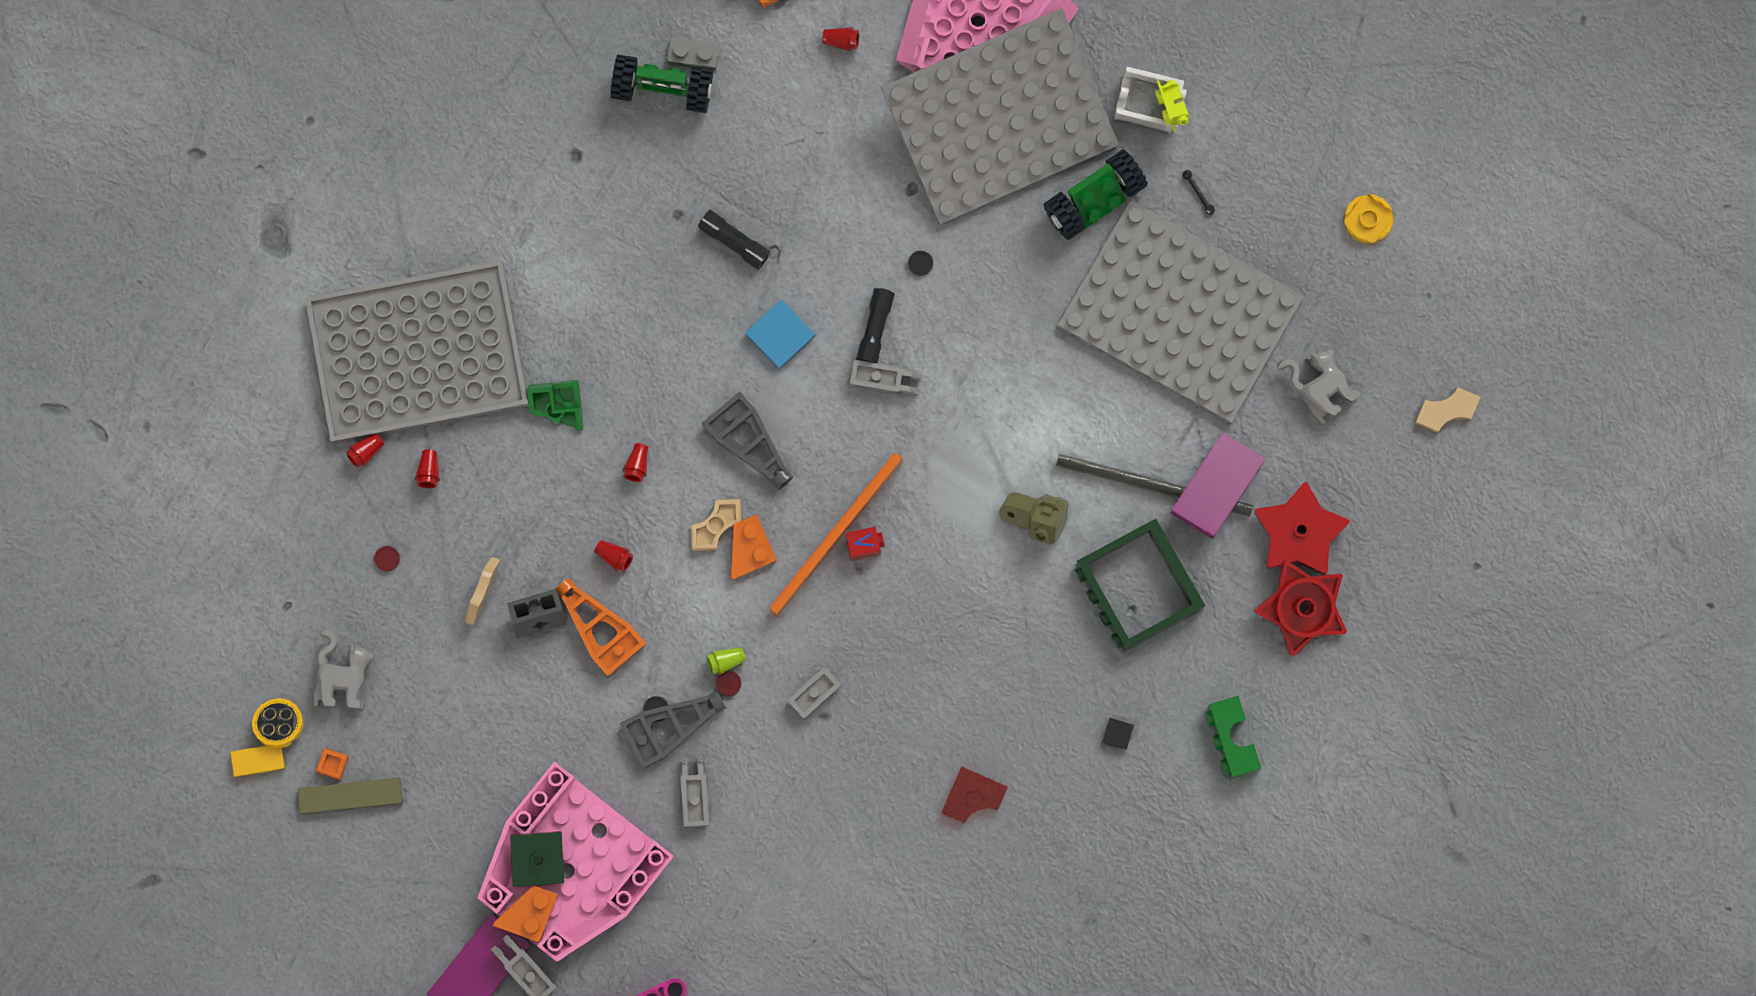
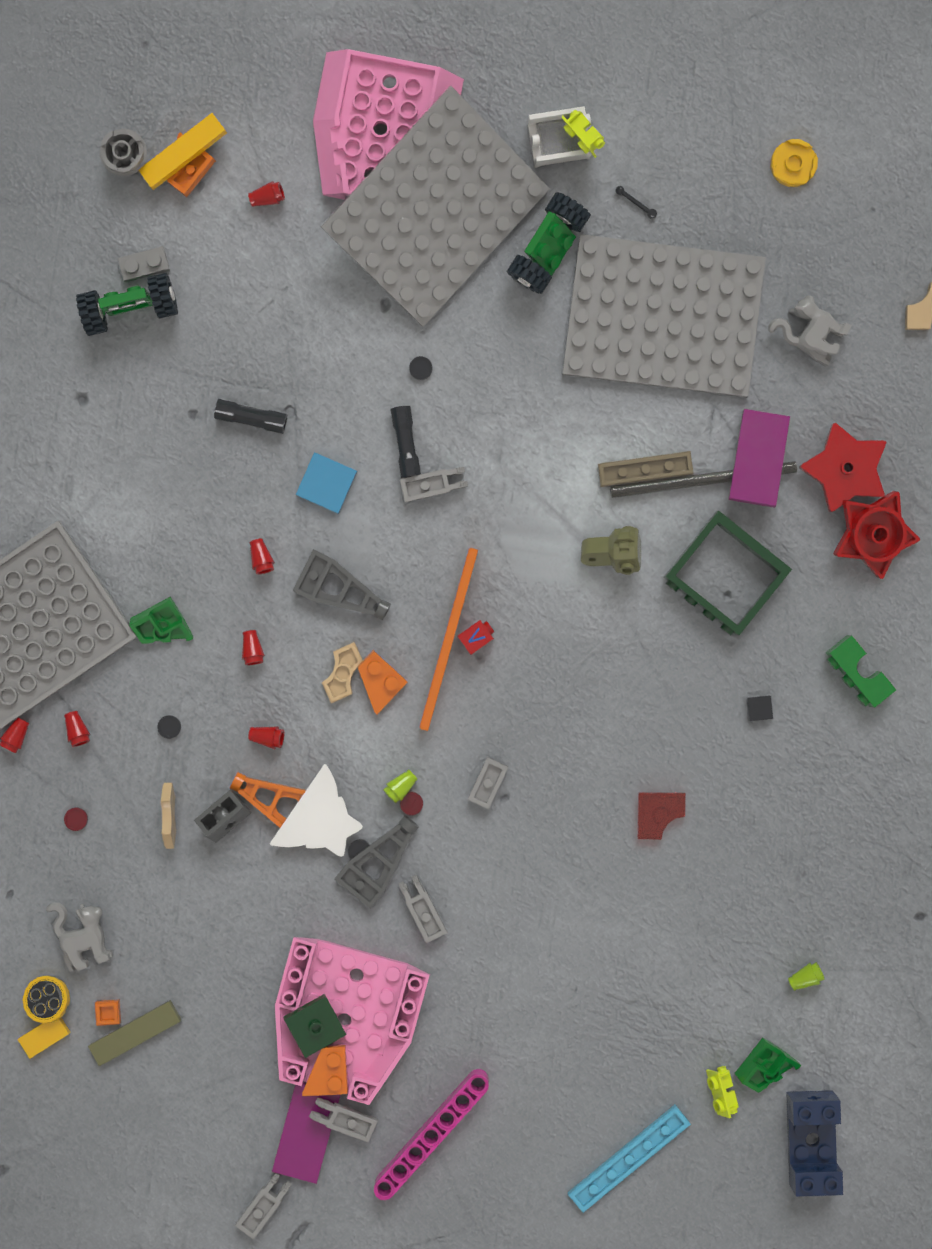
camera: 20 degrees left, 10 degrees up
(520, 506) = (169, 726): none -> black piece
(630, 656) = (318, 818): none -> white sticker
(684, 379) = (261, 559): none -> red cone
(1101, 451) = (645, 469): none -> dark tan tile

